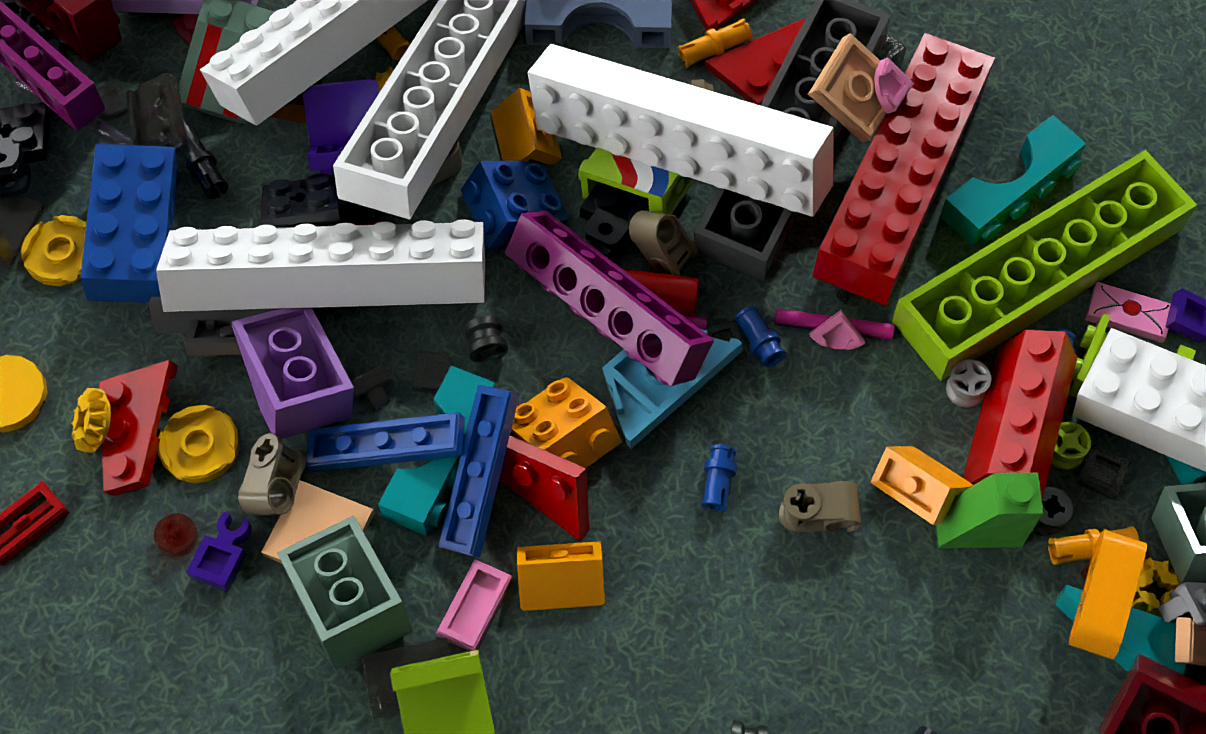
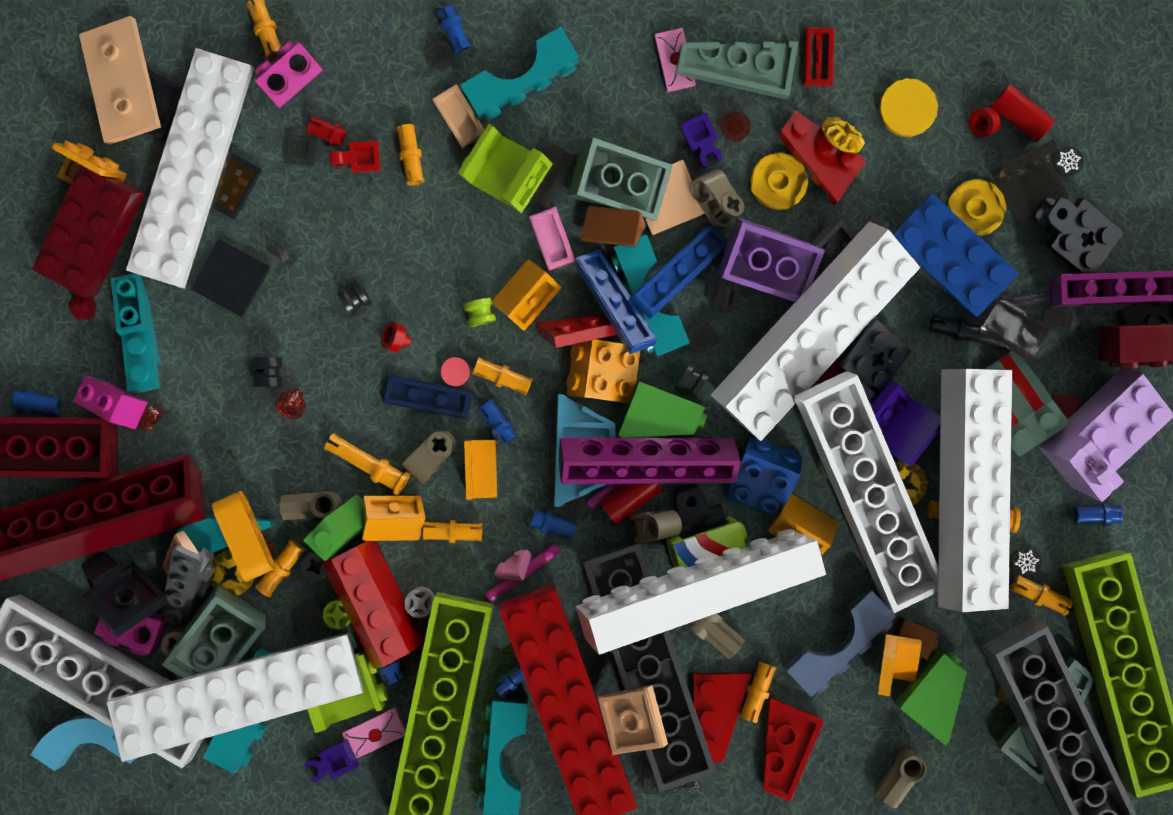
camera: 135 degrees right, 25 degrees up
(98, 581) = (749, 67): none -> sand green wing
(154, 662) = (668, 48): none -> bright pink tile
(402, 546) = (613, 226): none -> dark orange slope
(552, 336) = (660, 414): none -> bright green slope
(627, 599) = (479, 312): none -> lime wheel
(668, 517) = (502, 376): none -> light orange pin
(713, 569) = (455, 371): none -> coral tile
(744, 661) = (394, 337): none -> red tile
(768, 572) = (427, 397): none -> dark blue tile
(781, 450) = (480, 469): none -> light orange panel
(868, 417) = (452, 531): none -> light orange pin
(890, 85) = (614, 740): bright pink tile -> none
(892, 544) = (380, 470): none -> light orange pin
(926, 699) = (291, 404): none -> clear red tile
(940, 241) = (509, 681): none -> blue pin
(1005, 578) = (307, 505): none -> dark tan piece

